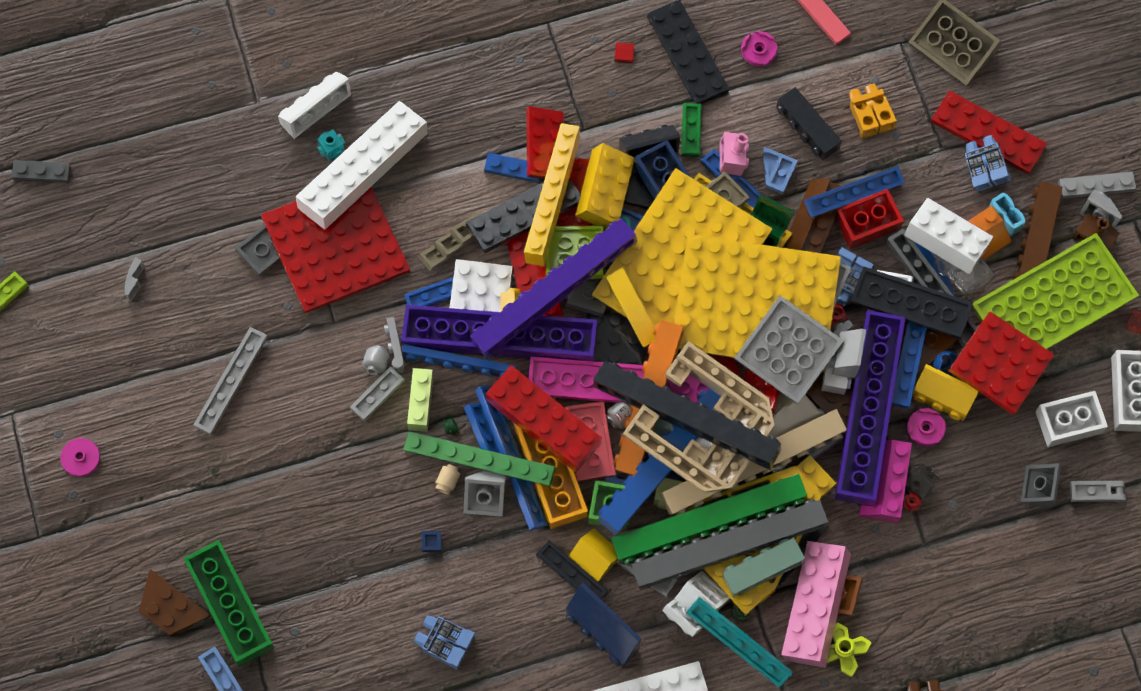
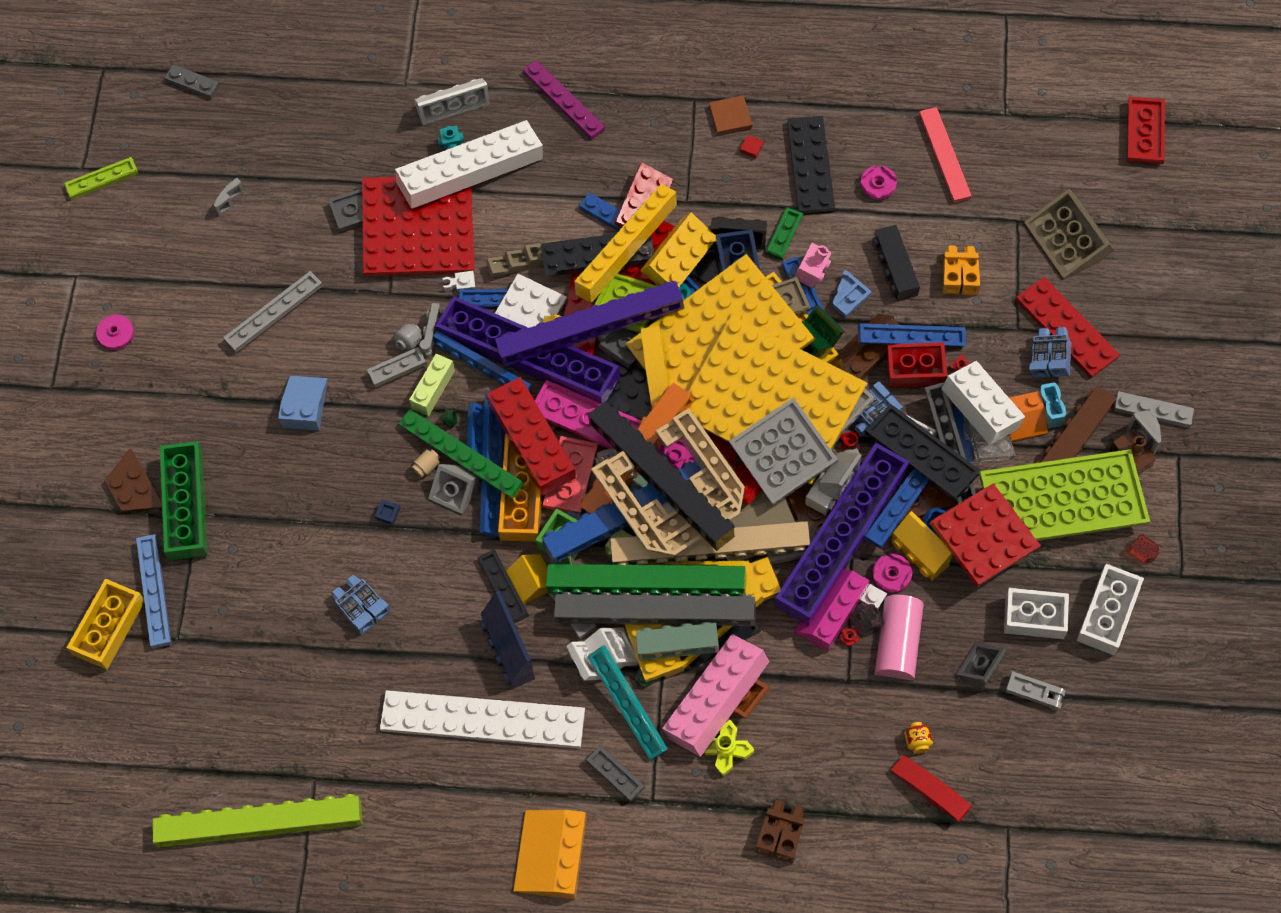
camera: 25 degrees right, 5 degrees down
(301, 461) = (303, 403): none -> medium blue slope
(403, 285) = (462, 281): none -> white plate
(422, 65) = (564, 99): none -> magenta plate
(590, 27) = (730, 115): none -> dark orange tile
(907, 209) = (960, 361): none -> red plate
(918, 456) = (873, 596): none -> white plate
(956, 486) = (899, 637): none -> bright pink brick
(1012, 574) = (918, 737): none -> yellow head
(1043, 617) = (931, 788): none -> red slope

